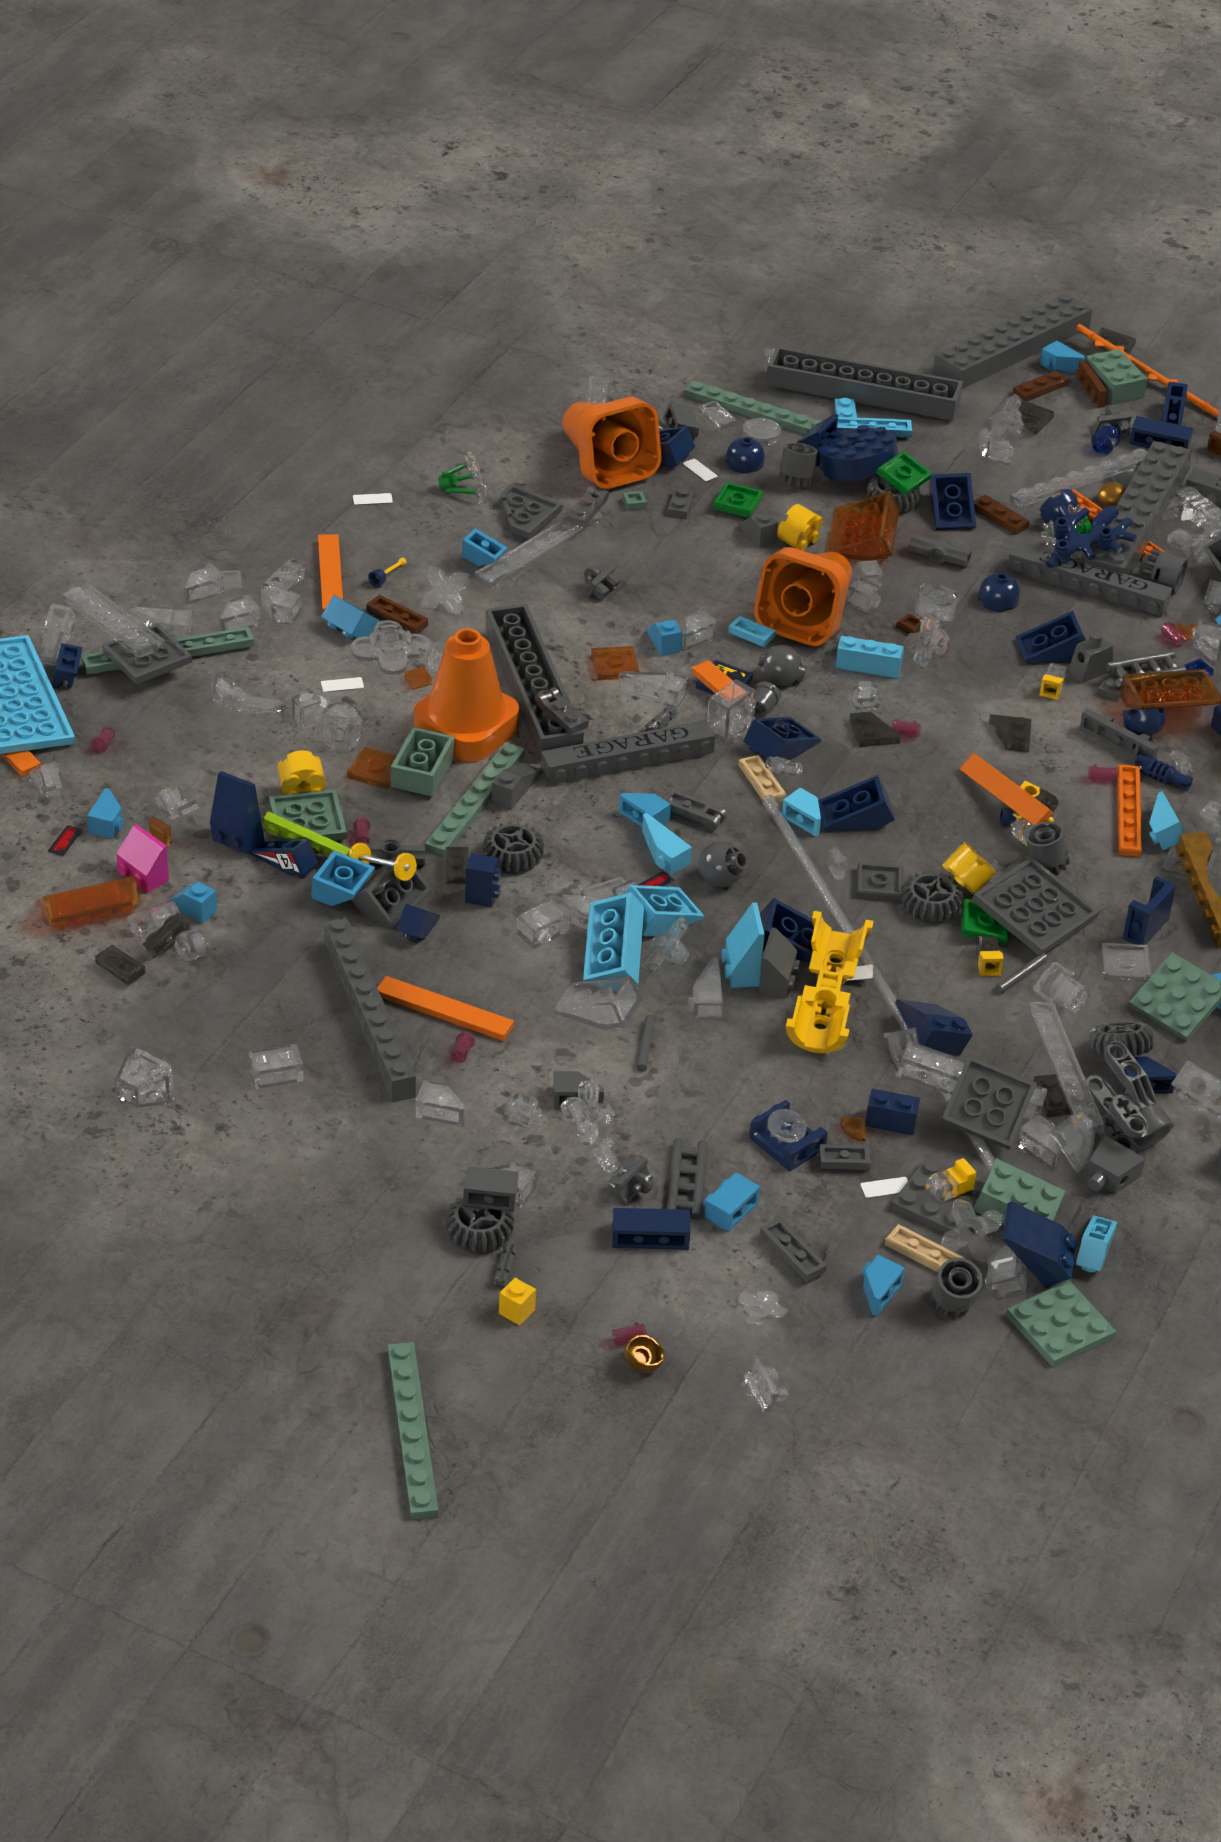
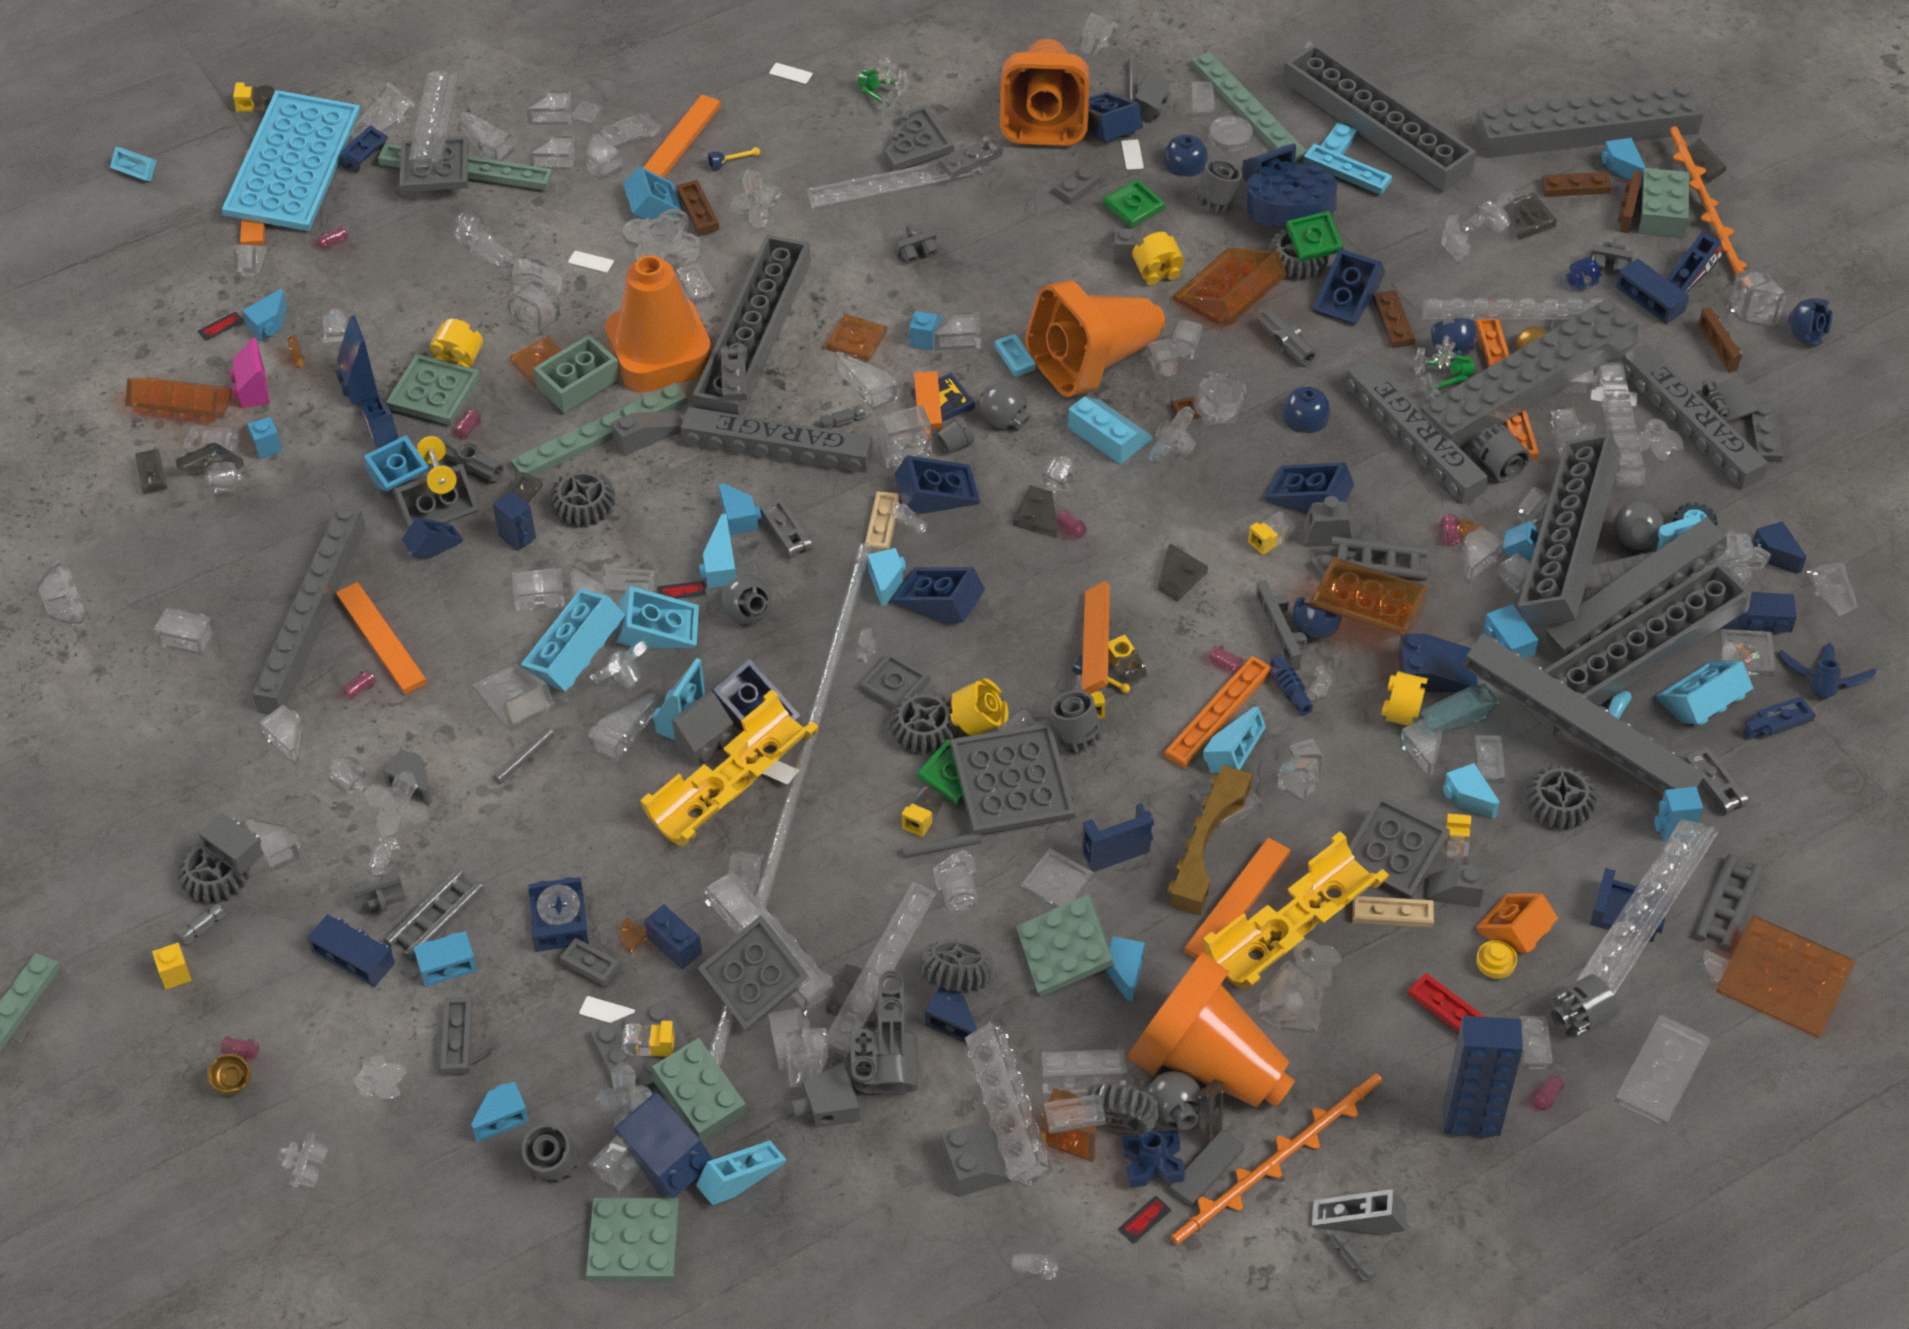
camera: 35 degrees right, 10 degrees up
(279, 826) = (396, 405): lime plate -> none
(481, 548) = (829, 164): dark azure slope -> none
(634, 500) = (1034, 165): sand green tile -> none
(918, 1248) = (577, 1097): tan tile -> none
(936, 1026) = (793, 863): dark blue slope -> none
(1071, 541) = (1425, 387): dark blue plant -> none
(1199, 664) = (1442, 581): clear blue tile -> none

